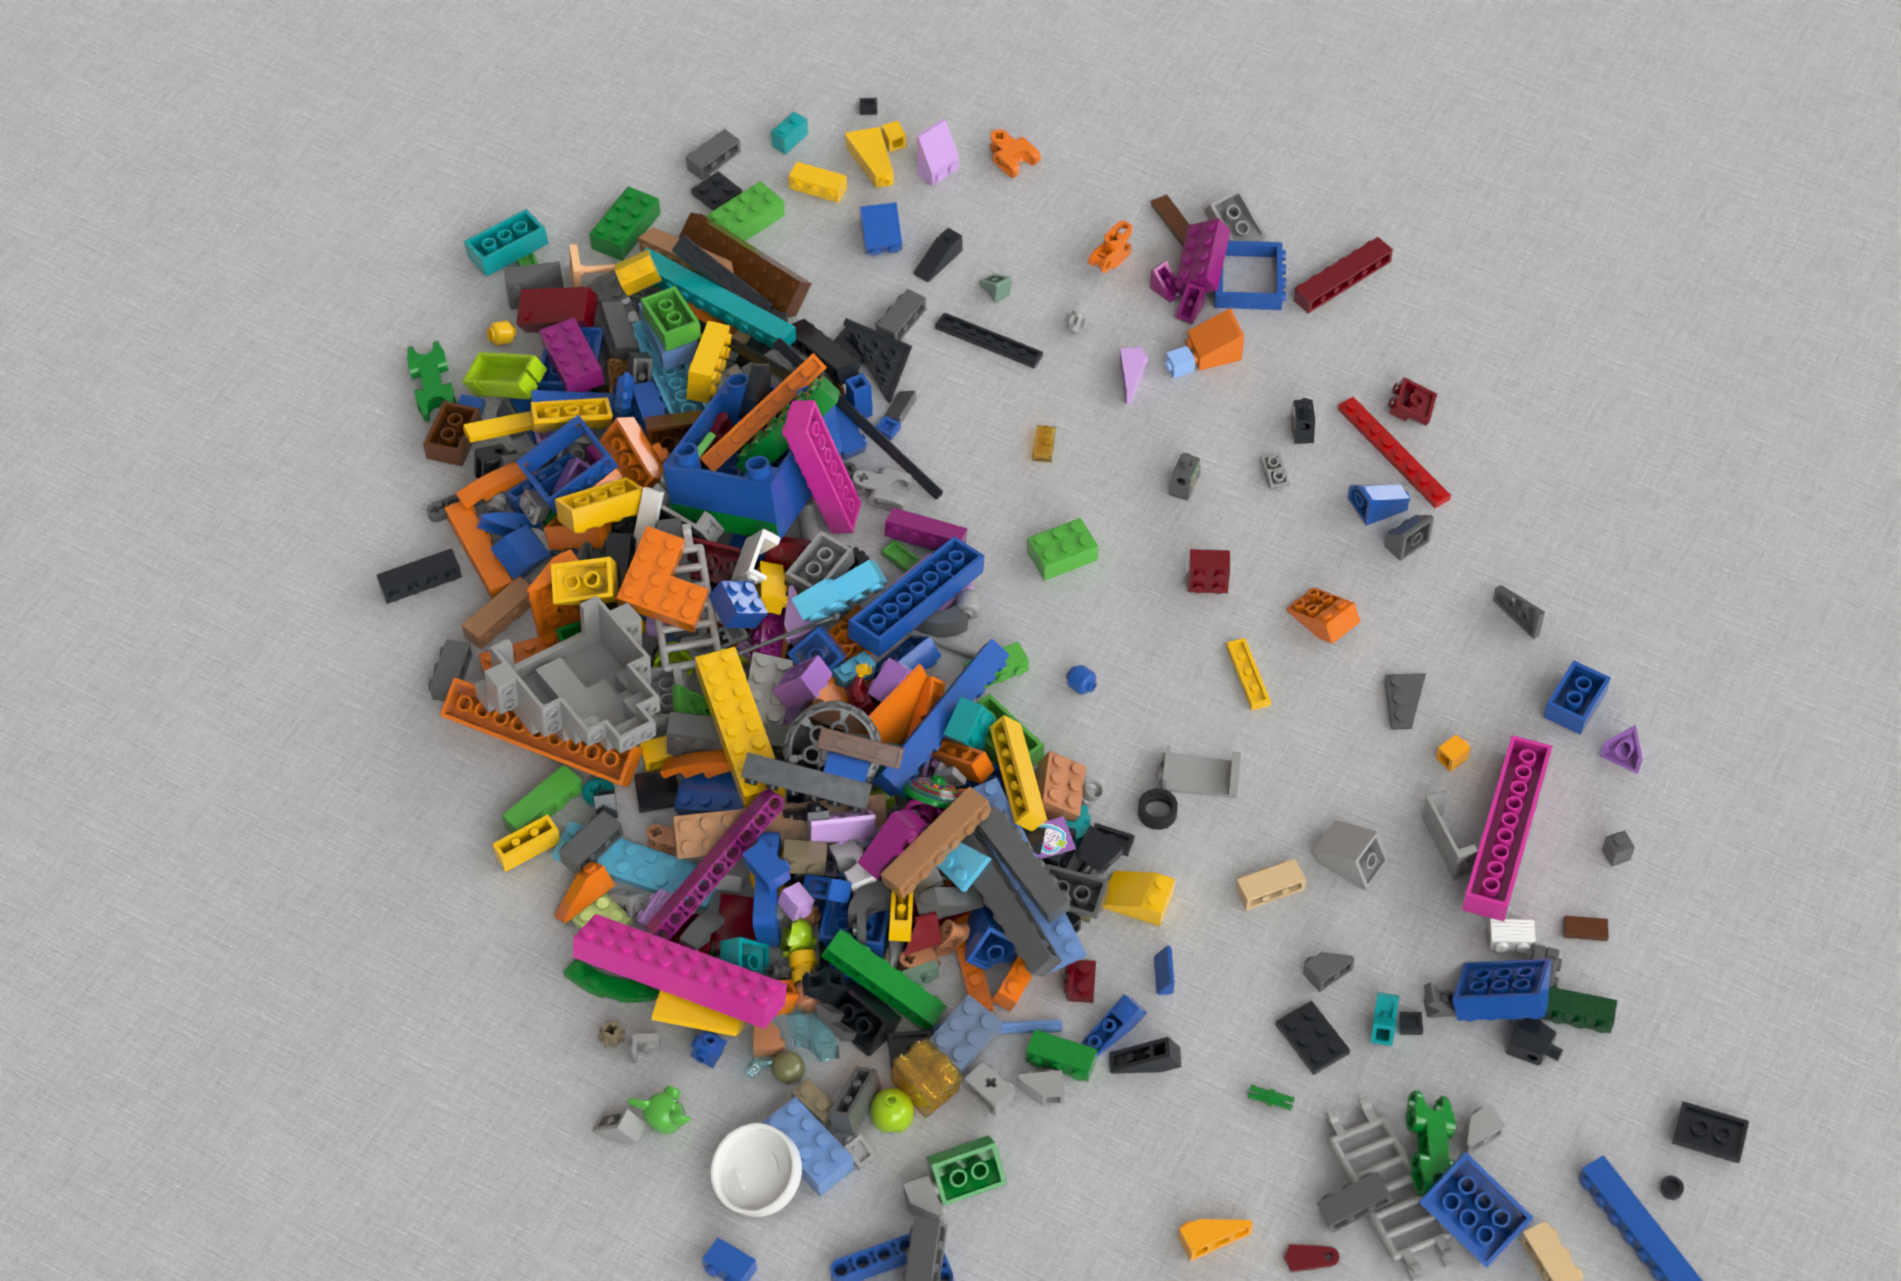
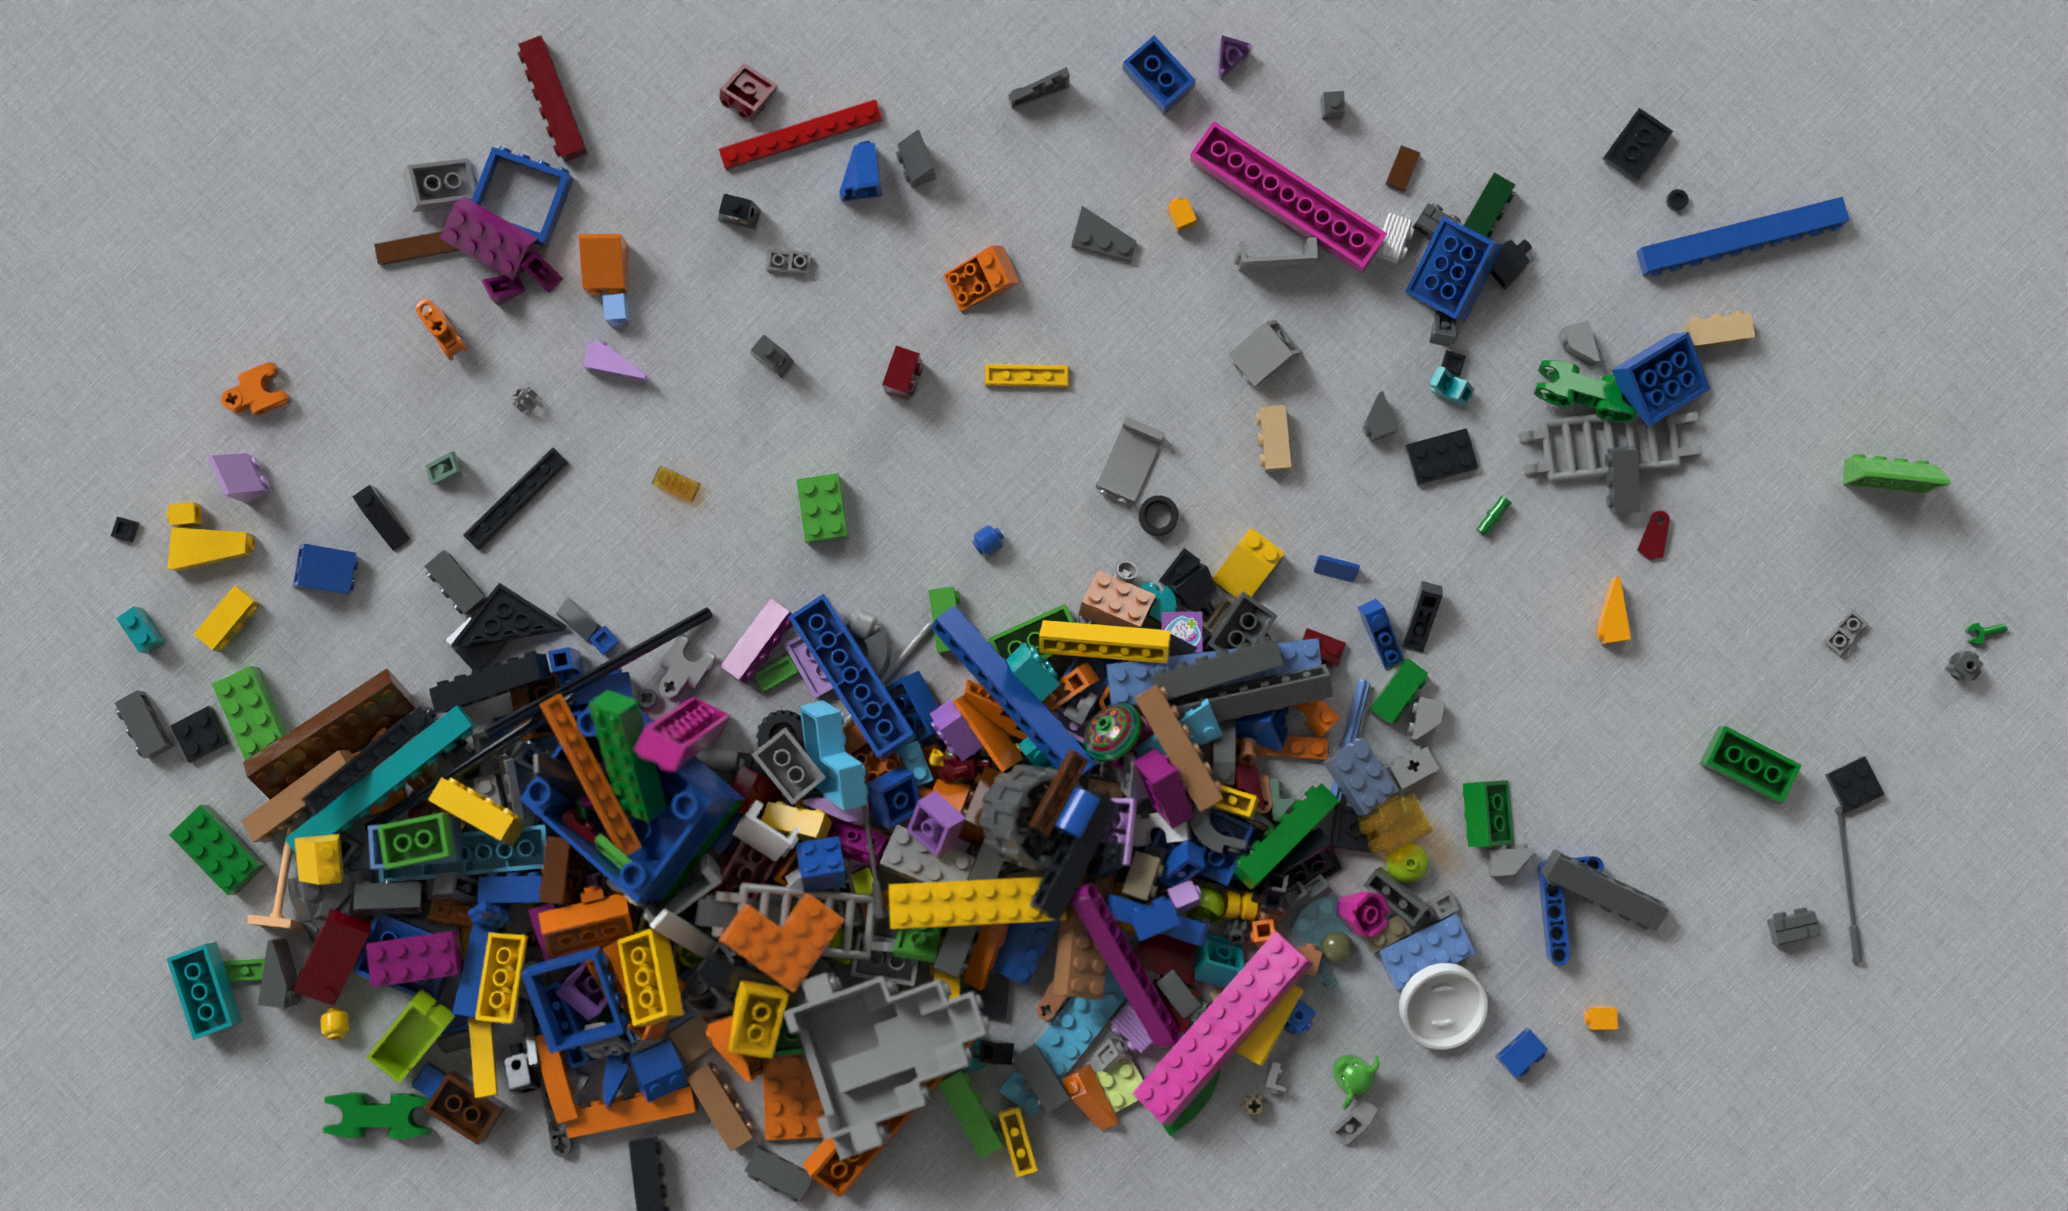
camera: 70 degrees left, 30 degrees up
(826, 1079) = (1363, 912): none -> dark pink cone

